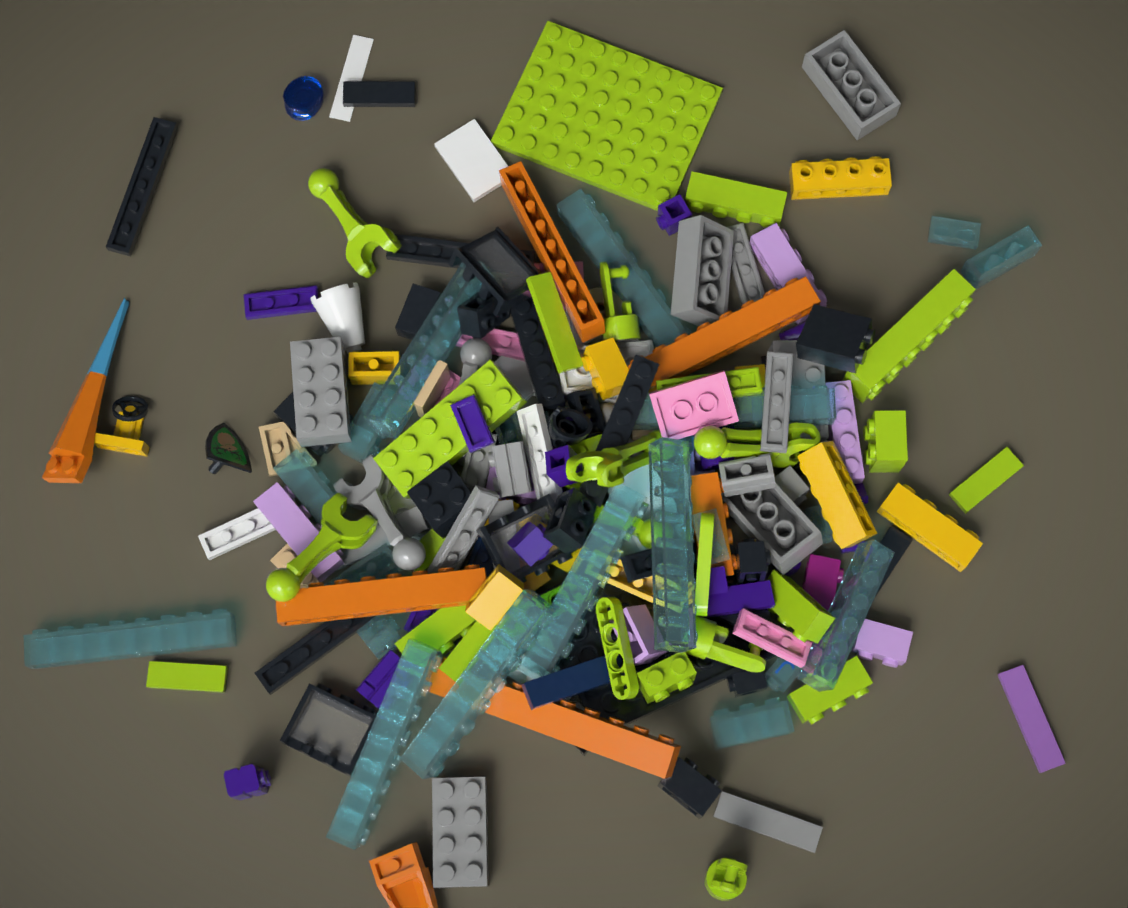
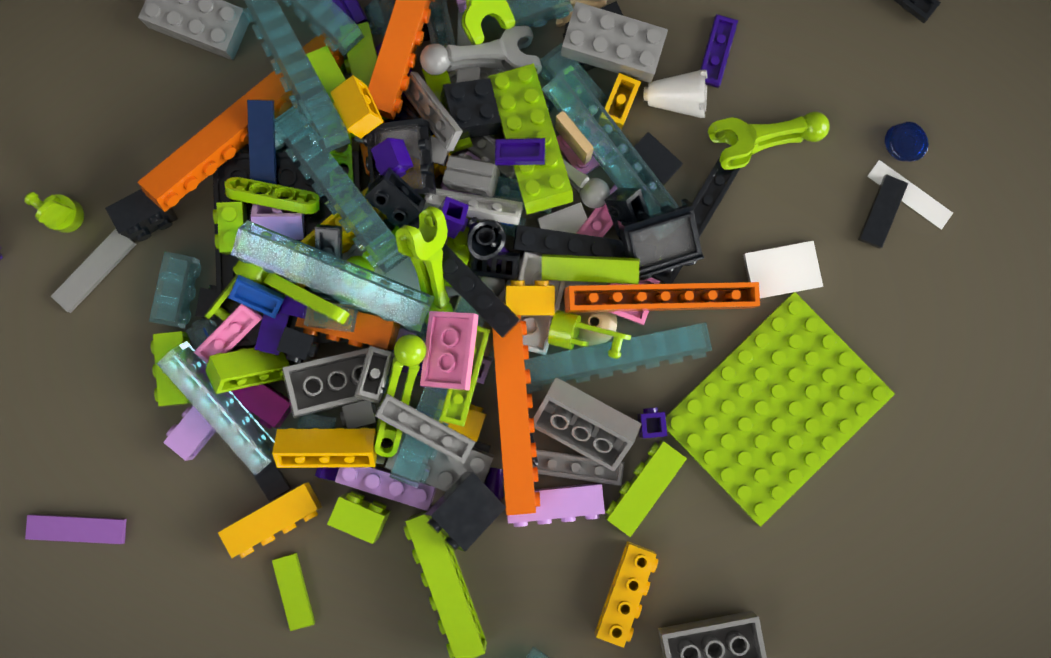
camera: 105 degrees right, 10 degrees up
(723, 617) = (256, 296): none -> blue tile

